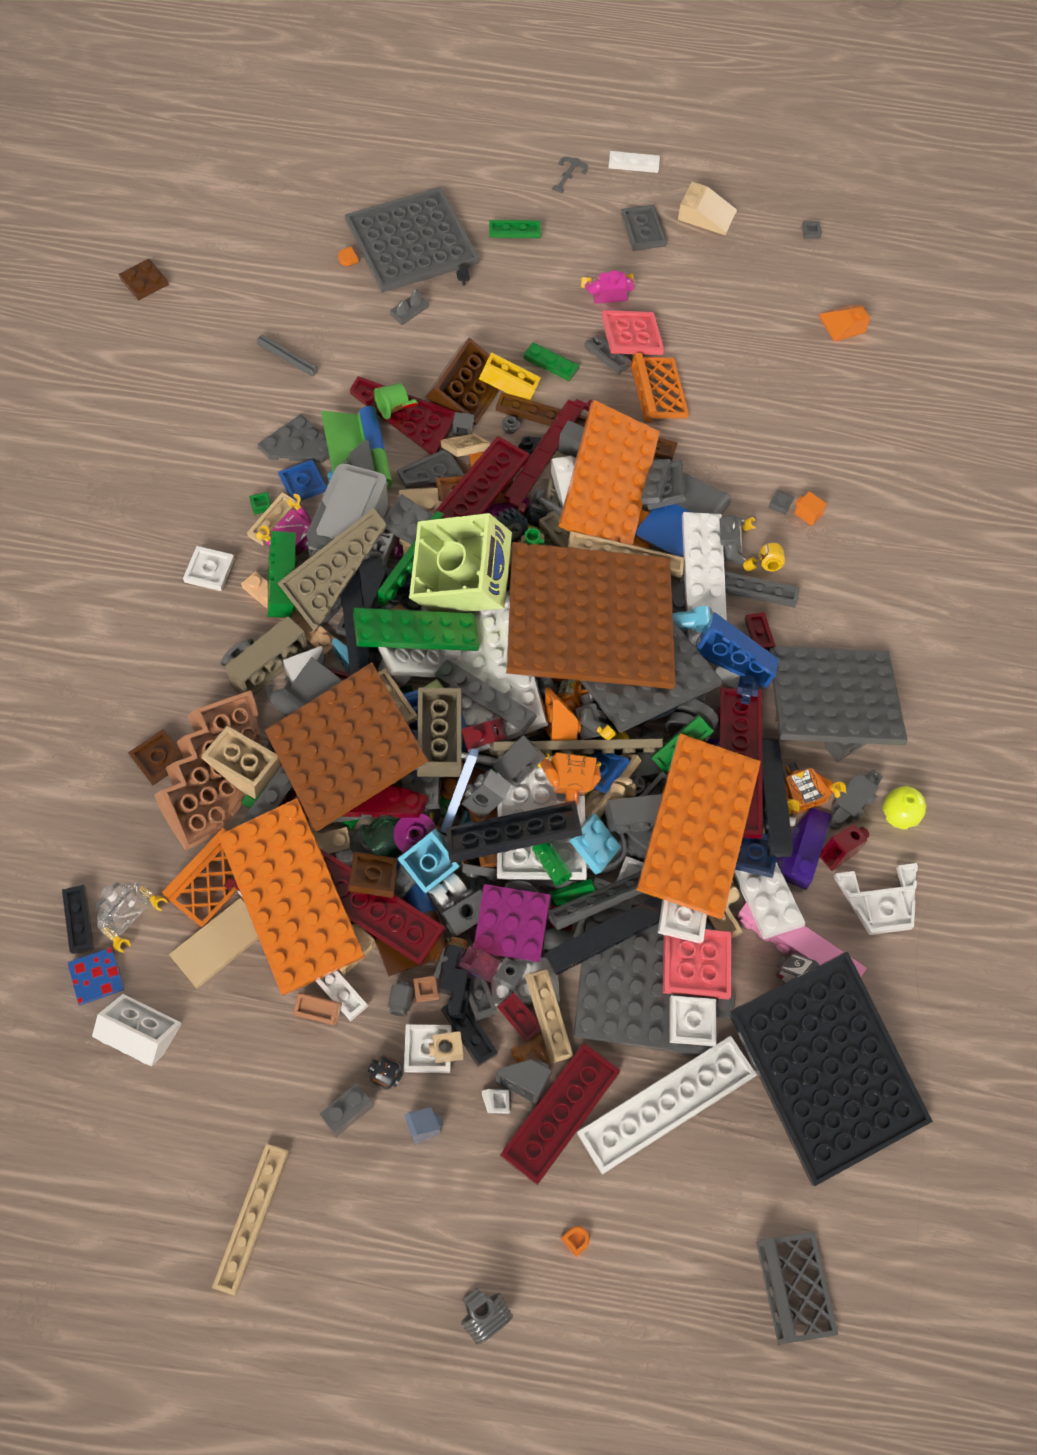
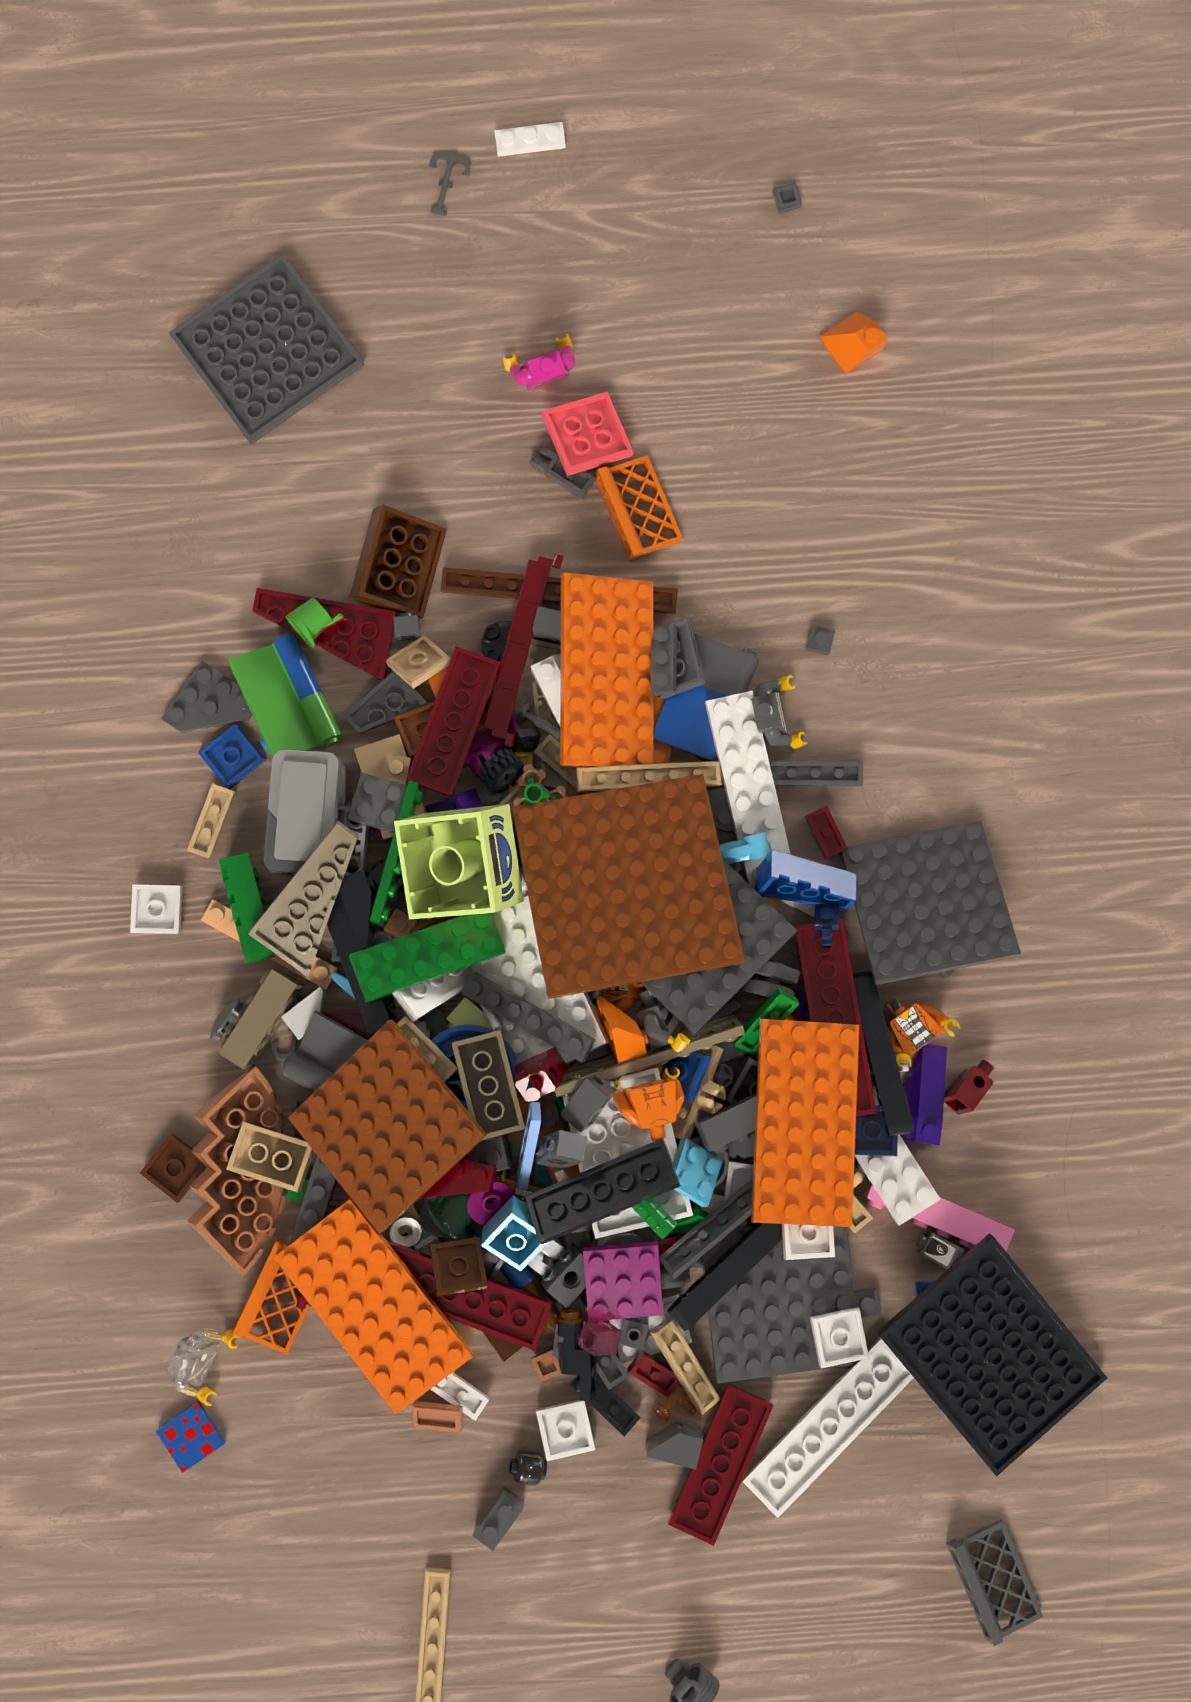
camera: 10 degrees left, 20 degrees up
(77, 919) = (150, 1380): black plate -> none
(135, 1029) = (253, 1486): white slope -> none
(216, 944) = (306, 1371): tan tile -> none
(260, 502) = (190, 800): green tile -> none
(287, 355) = (158, 574): dark grey axle -> none
(295, 522) = (240, 834): dark pink torso -> none
(339, 837) = (412, 1238): none -> white piece
(347, 257) = (191, 398): orange tile -> none
(361, 456) = (295, 724): dark grey slope -> none
(400, 998) = (522, 1383): dark grey brick -> none
(409, 308) = (293, 461): dark grey tile -> none
(423, 1124) = (581, 1516): sand blue slope -> none
(454, 1054) = (591, 1421): tan brick -> none
(463, 274) = (348, 392): black plate -> none
(496, 1100) = (650, 1468): white slope -> none
(509, 377) = (448, 549): yellow brick -> none
(510, 428) = (465, 615): dark grey plate -> none
(514, 229) = (397, 298): green plate -> none
(551, 361) = (493, 499): green plate -> none
(576, 1240) = (765, 1587): orange tile -> none
(643, 227) = (565, 250): dark grey tile -> none
(698, 967) = (836, 1280): coral plate -> none
(706, 209) = (643, 201): tan slope -> none
(772, 557) = (822, 726): yellow head -> none
(810, 508) = (856, 643): orange brick -> none
(850, 805) = (974, 1017): dark grey hinge -> none
(885, 908) = (1022, 1149): white wing -> none
(904, 807) = (1027, 1019): neon yellow cylinder -> none

